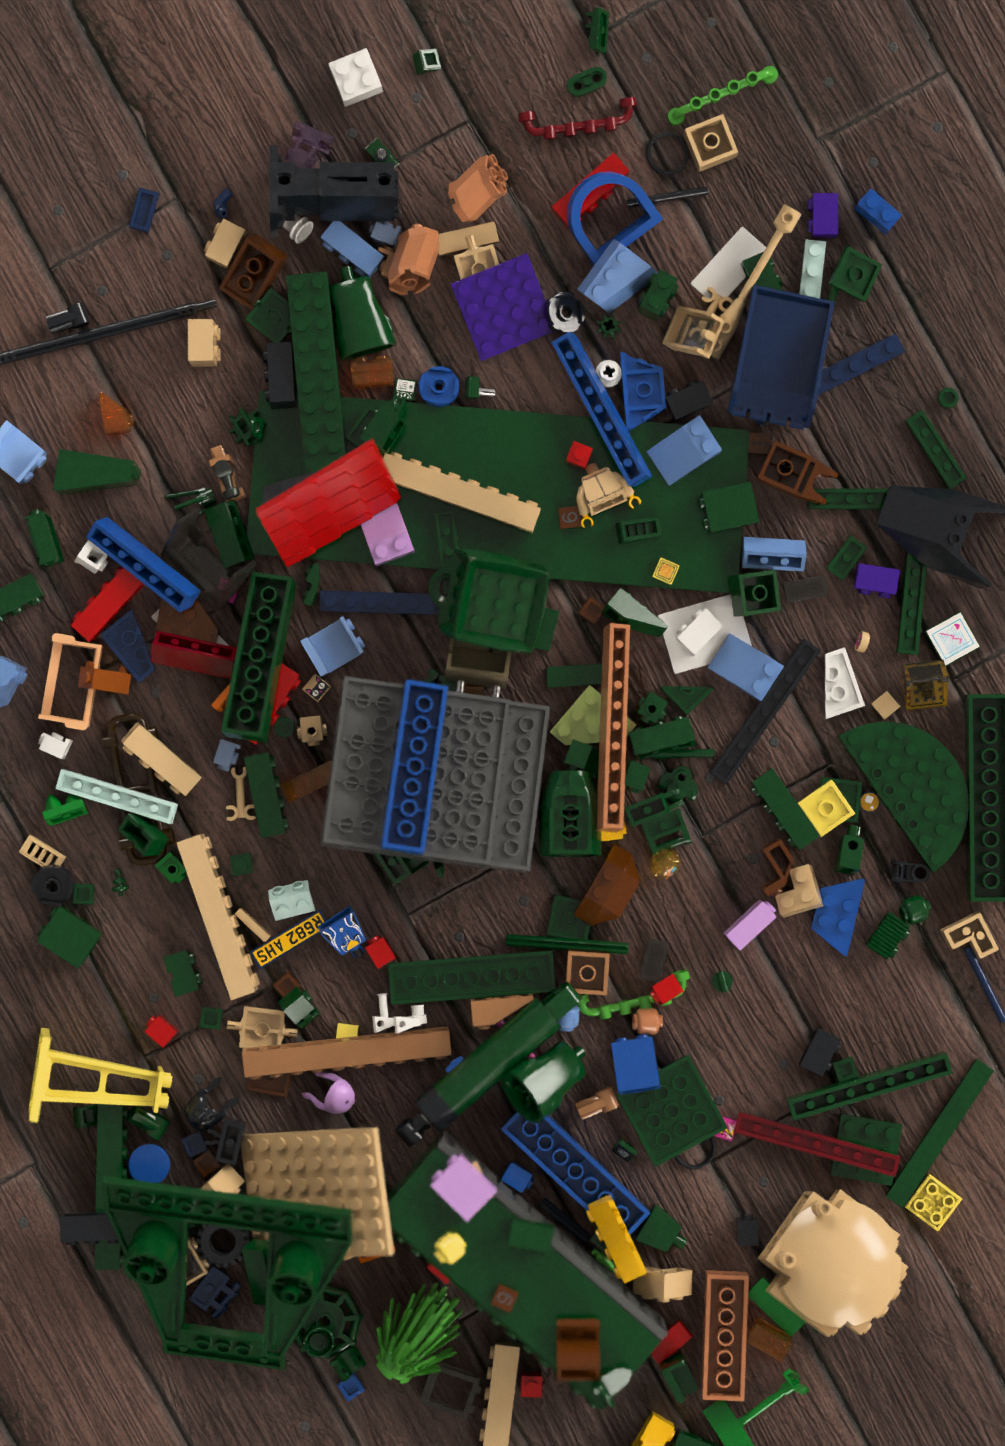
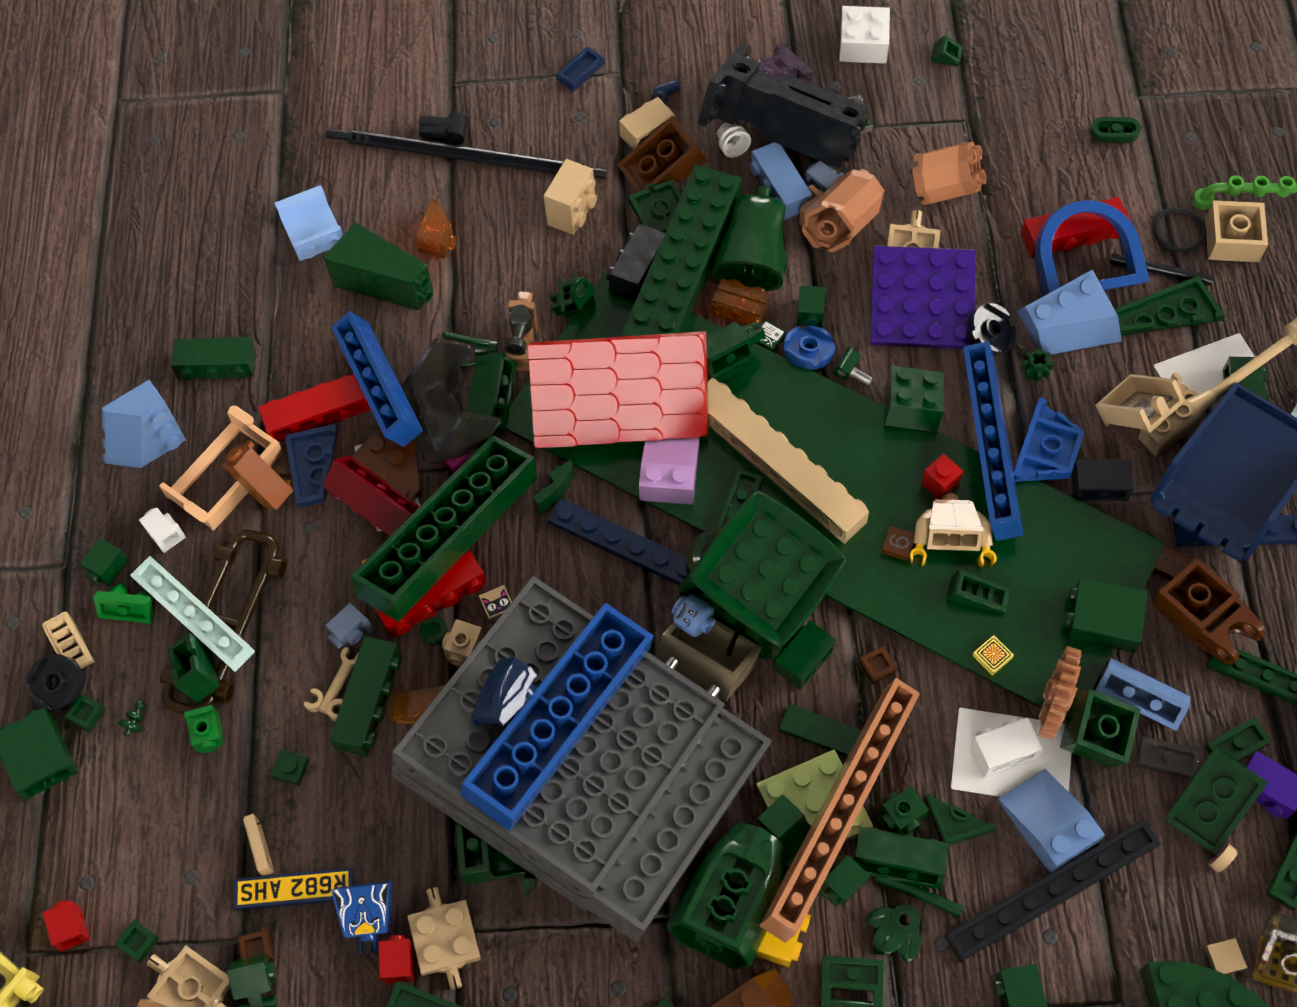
camera: 30 degrees right, 25 degrees down
(31, 788) = (104, 563): none -> dark green brick
(44, 538) = (286, 311): dark green window -> none
(91, 550) = (326, 354): white brick -> none
(161, 759) = (267, 593): tan brick -> none
(183, 972) = (139, 865): dark green brick -> none
(217, 916) = (219, 813): tan brick -> none
(291, 900) = (322, 839): light aqua bracket -> none
(333, 646) = (546, 561): light blue panel -> none
(374, 774) = (503, 692): none -> dark blue slope
(401, 923) = (444, 938): none -> tan plate
(425, 352) = (811, 306): none -> dark green brick
(455, 240) = (902, 216): tan tile -> none
(459, 650) = (693, 615): none -> medium blue head
(533, 399) = (914, 398): none -> dark green brick
(588, 126) = (1100, 170): dark red bar -> none
(599, 30) = (1149, 88): dark green plate -> none
(616, 375) = (1023, 417): white piece -> none
(628, 611) = (936, 697): slope -> none
(651, 808) = (846, 939): dark green hinge -> none
(654, 302) = (1111, 351): dark green brick -> none
(684, 450) = (1077, 527): medium blue slope -> none
(686, 231) = (1170, 308): none -> dark green wing
(720, 587) = (1059, 693): none -> nougat gear
(840, 685) = (1172, 901): white wing -> none
(844, 608) = (1216, 800): none -> dark green plate

